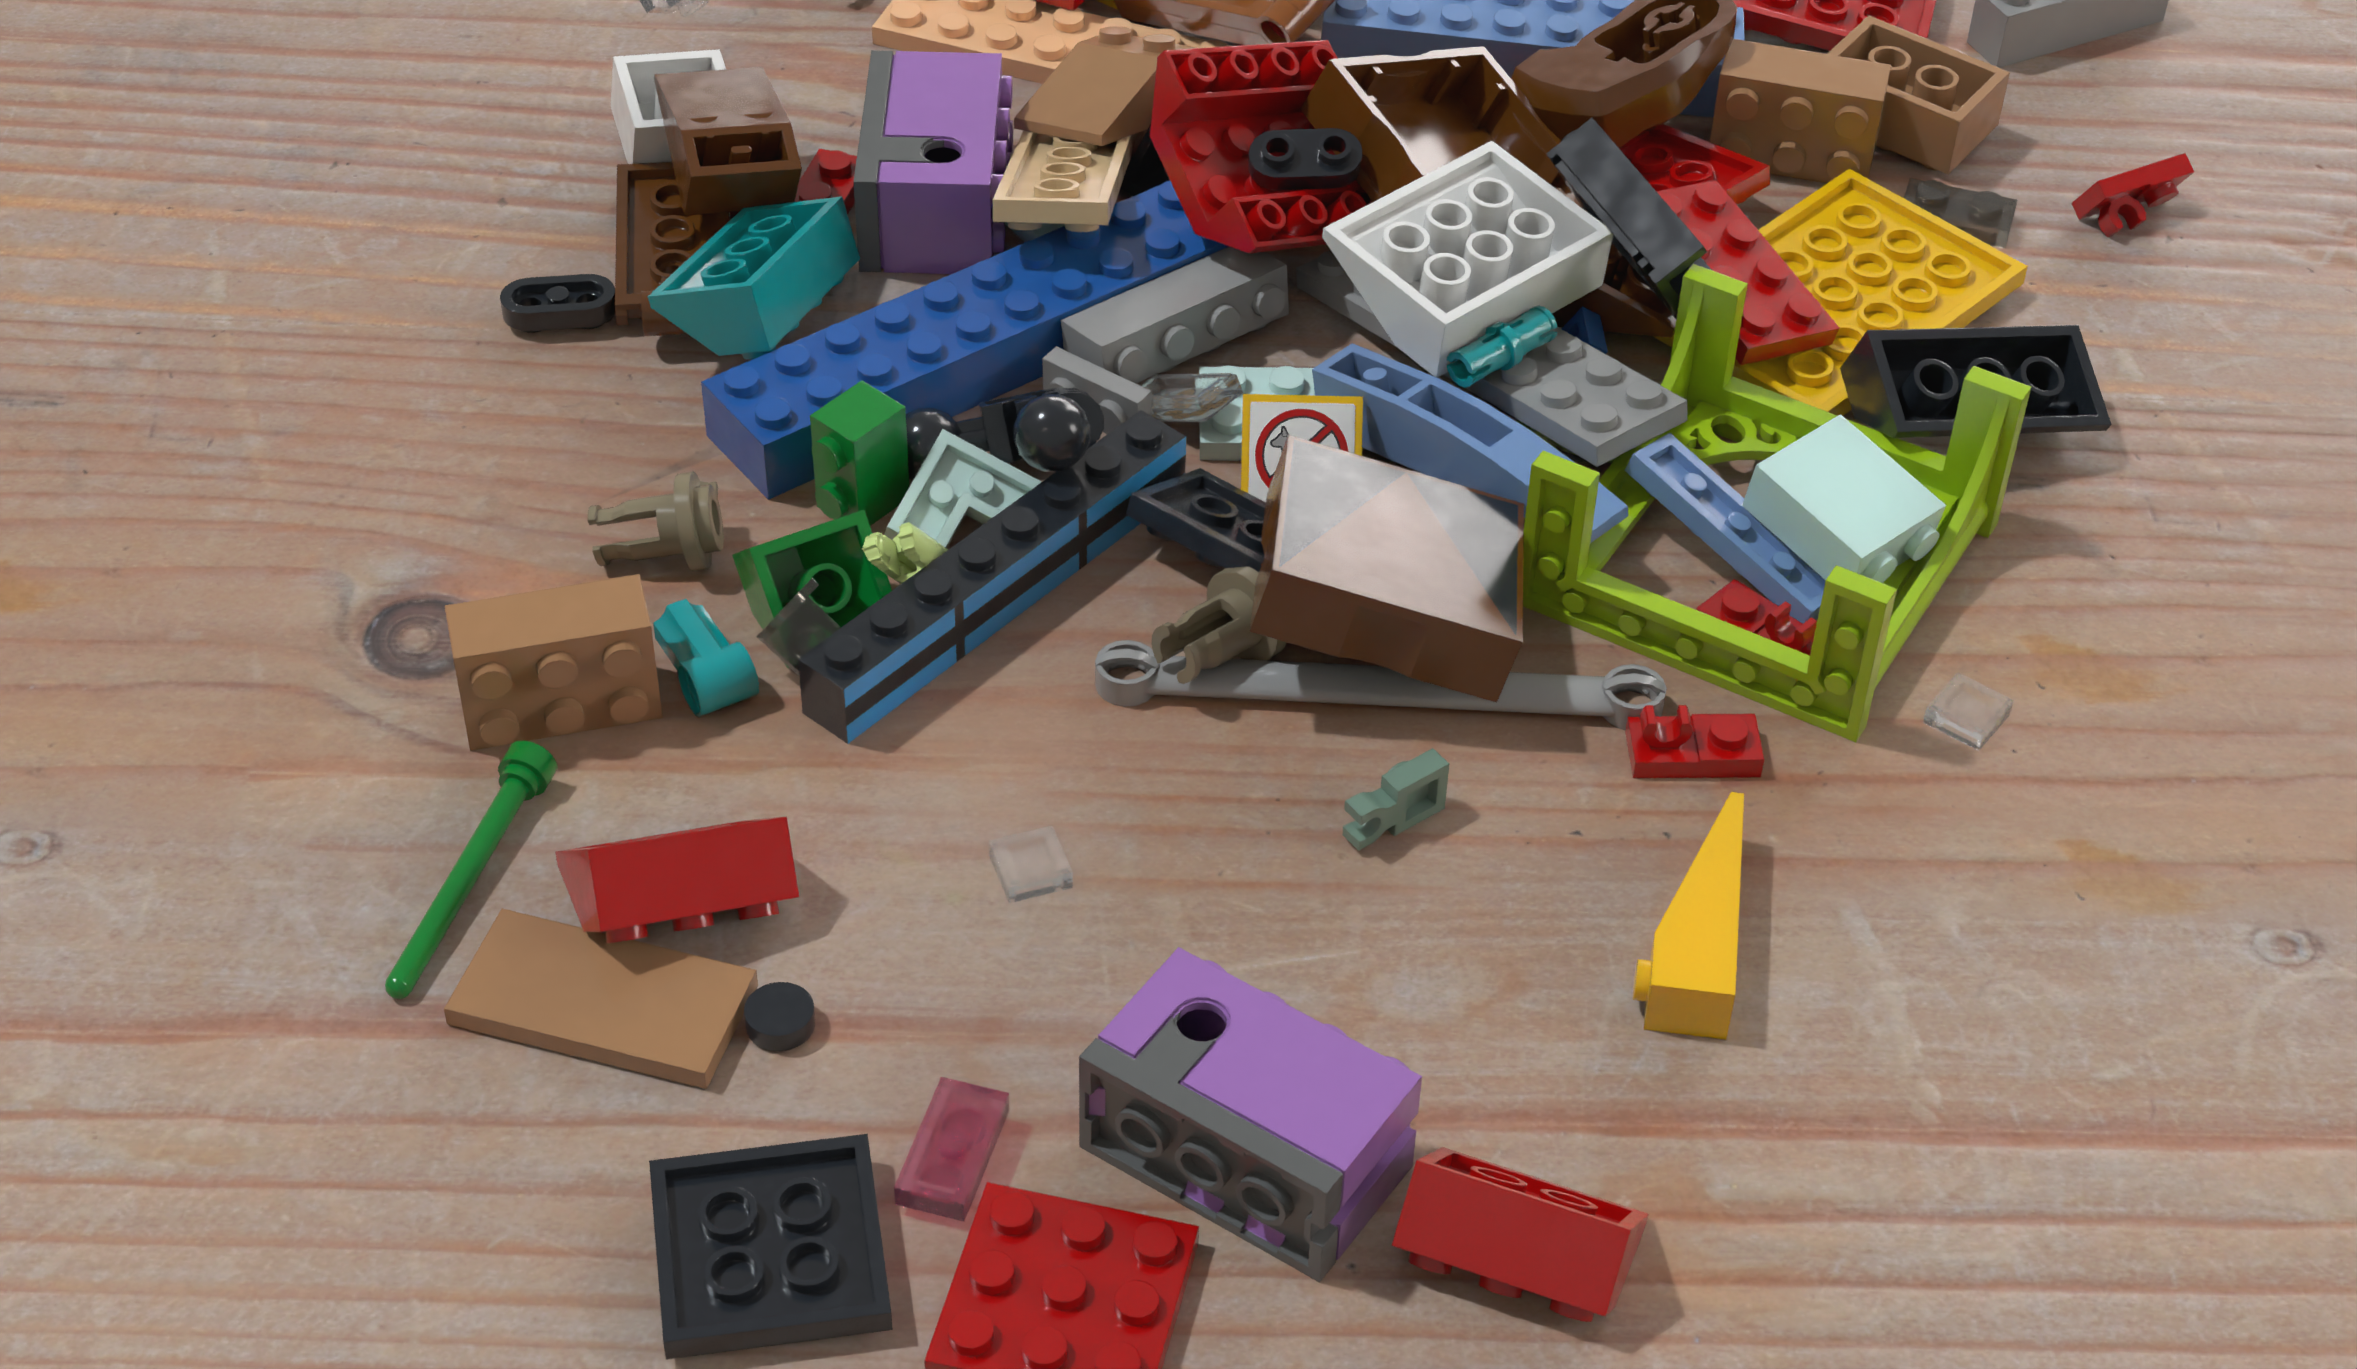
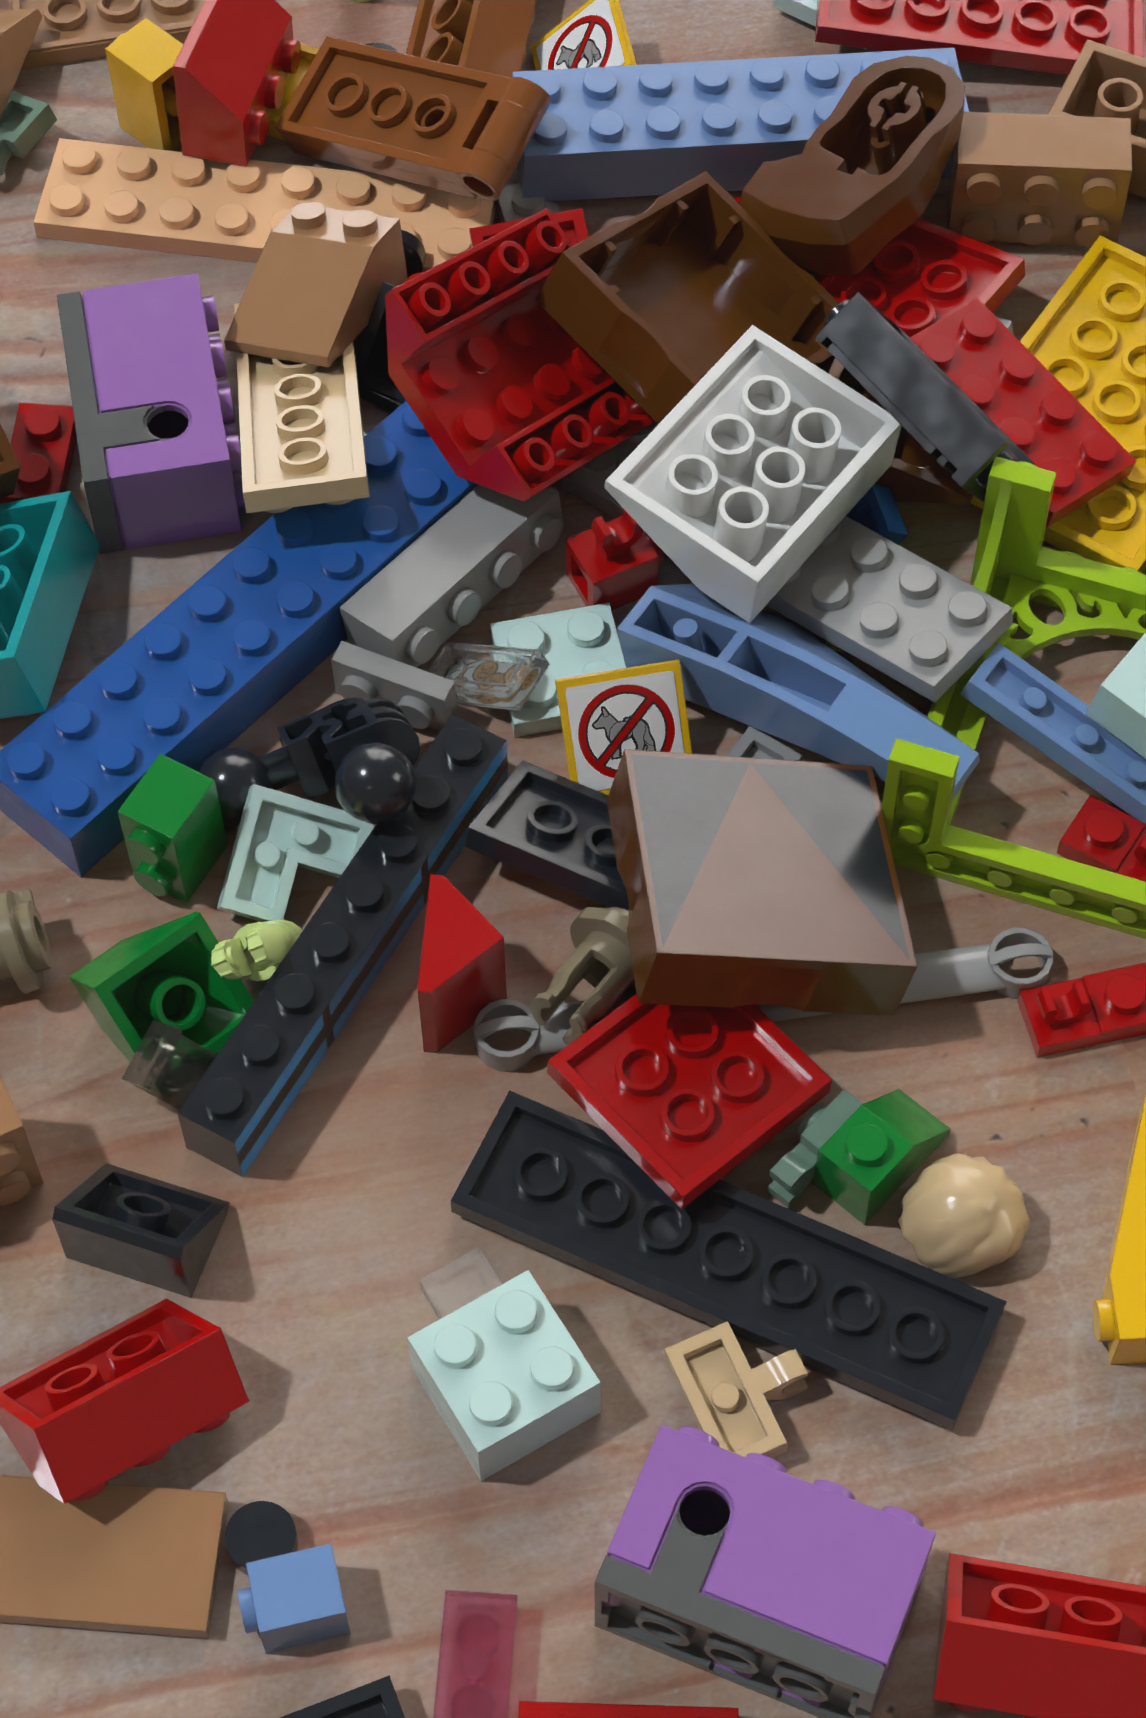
camera: 10 degrees left, 15 degrees up
(706, 665) = (81, 1123): teal piece -> none
(735, 759) = (140, 1228): none -> black slope
(796, 1061) = (294, 1599): none -> medium blue brick
(1047, 921) = (505, 1375): none -> light aqua brick
(1088, 596) = (458, 967): none -> red slope
(1256, 956) = (729, 1395): none -> tan plate
(1286, 721) = (688, 1087): none -> red plate
(1294, 876) = (732, 1260): none -> black plate
(1305, 159) = (559, 372): black plate -> none
(1324, 325) = (612, 562): none -> red brick
(1451, 815) = (876, 1152): none -> green slope
(1501, 346) = (811, 575): teal pin -> none
(1525, 874) = (963, 1215): none -> tan hair

